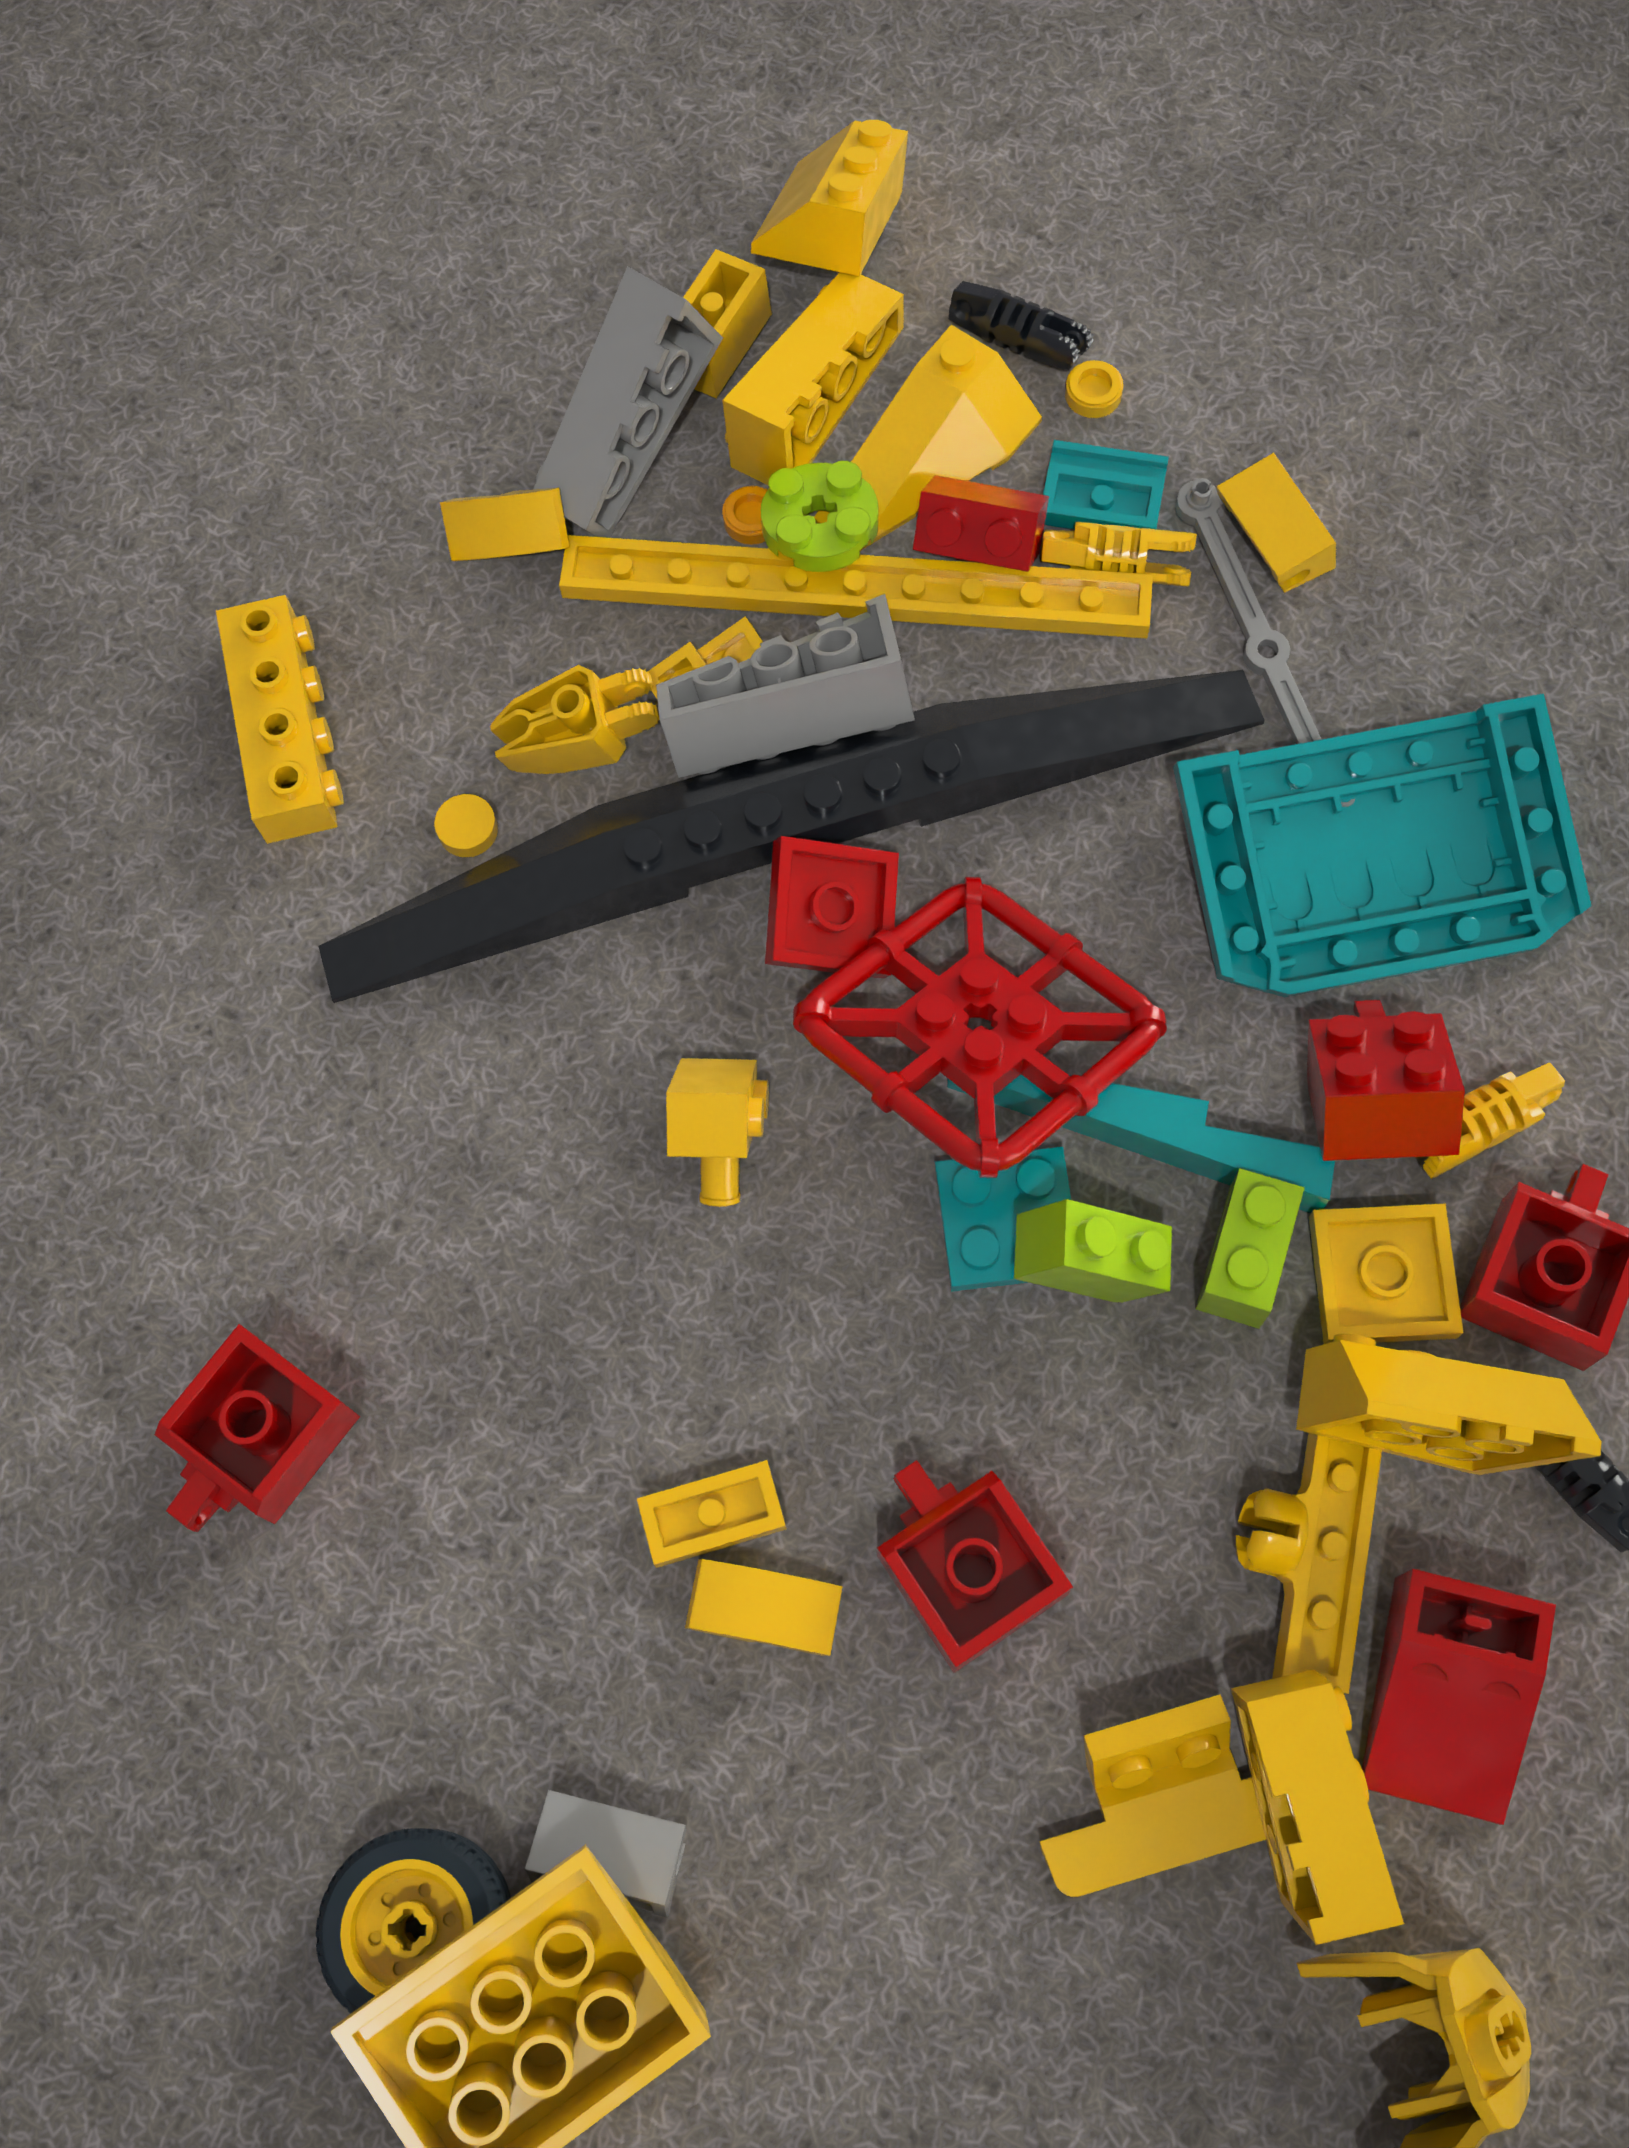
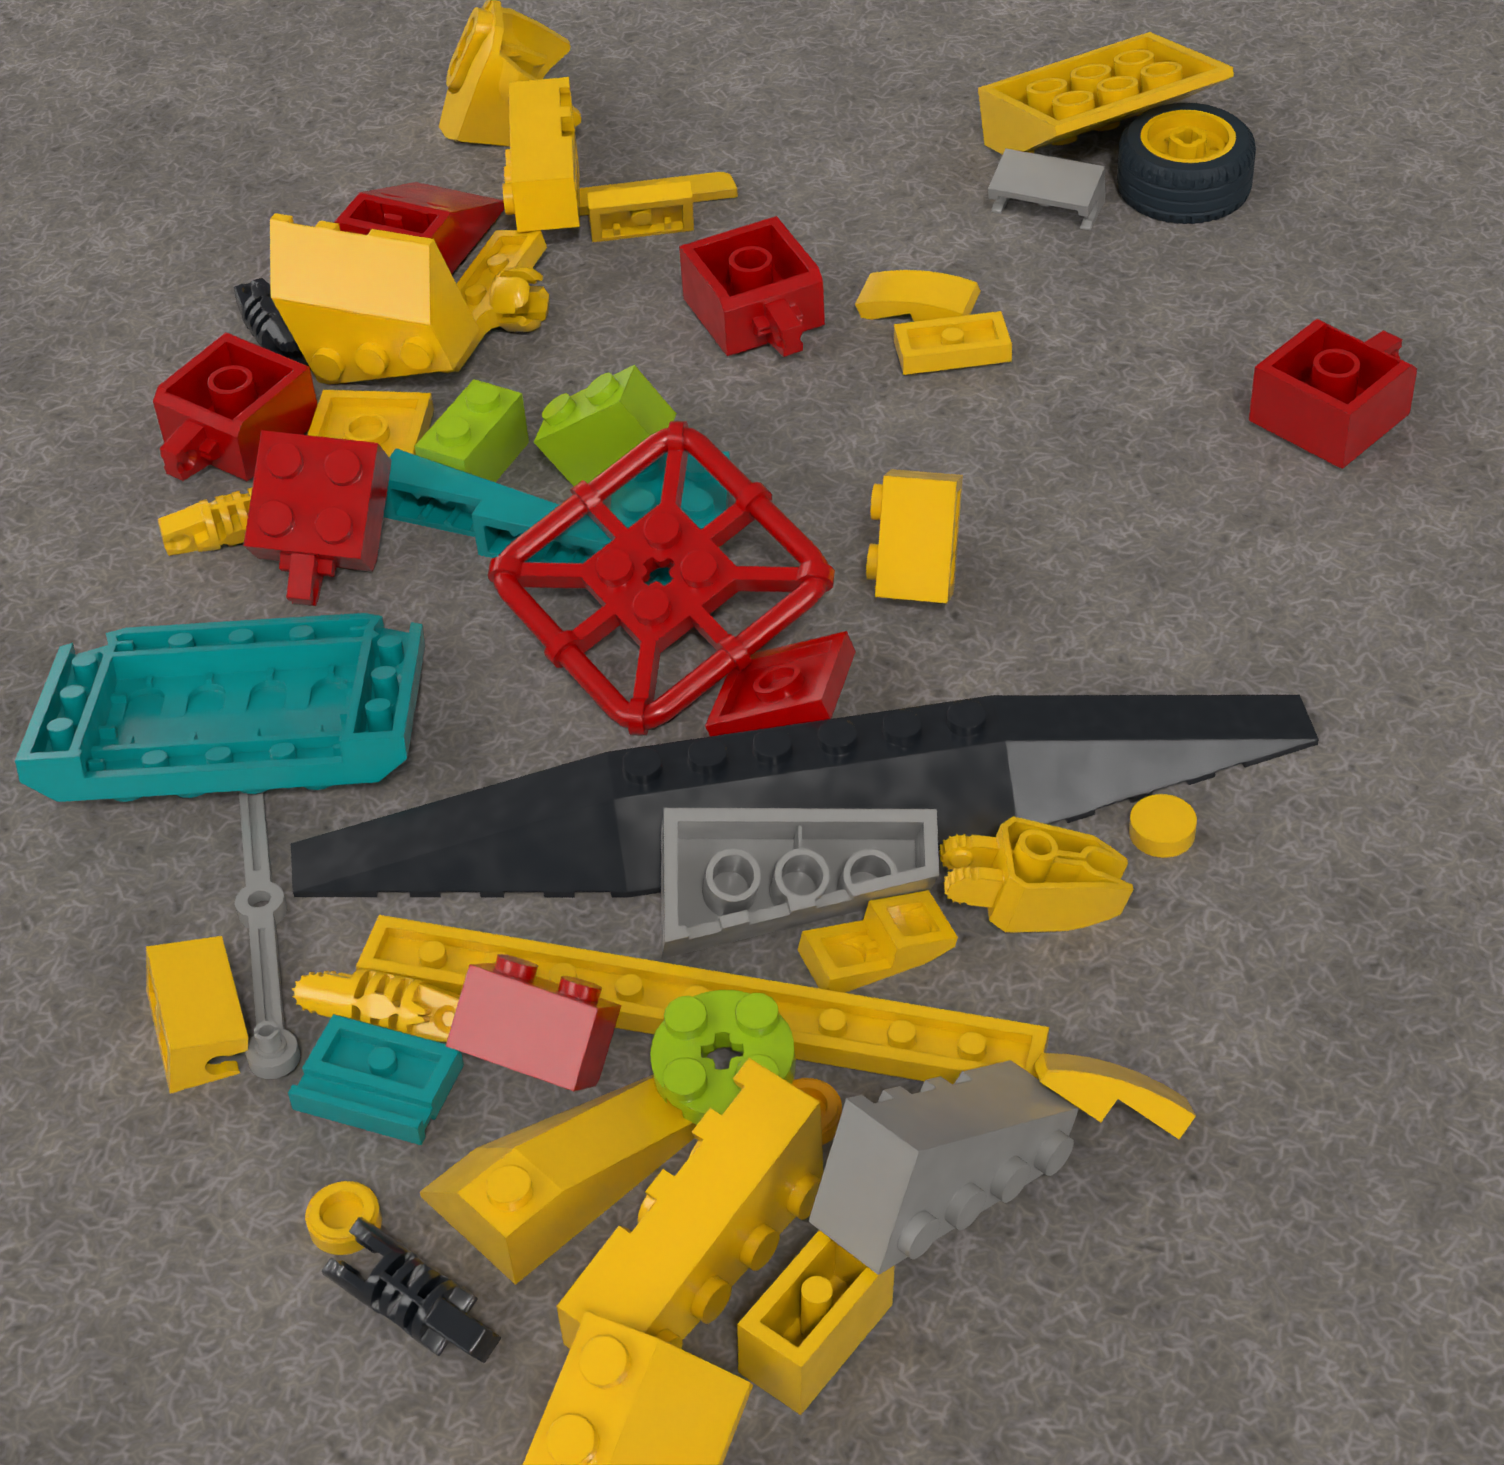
camera: 175 degrees left, 25 degrees down
(277, 719) = (1385, 931): yellow brick -> none

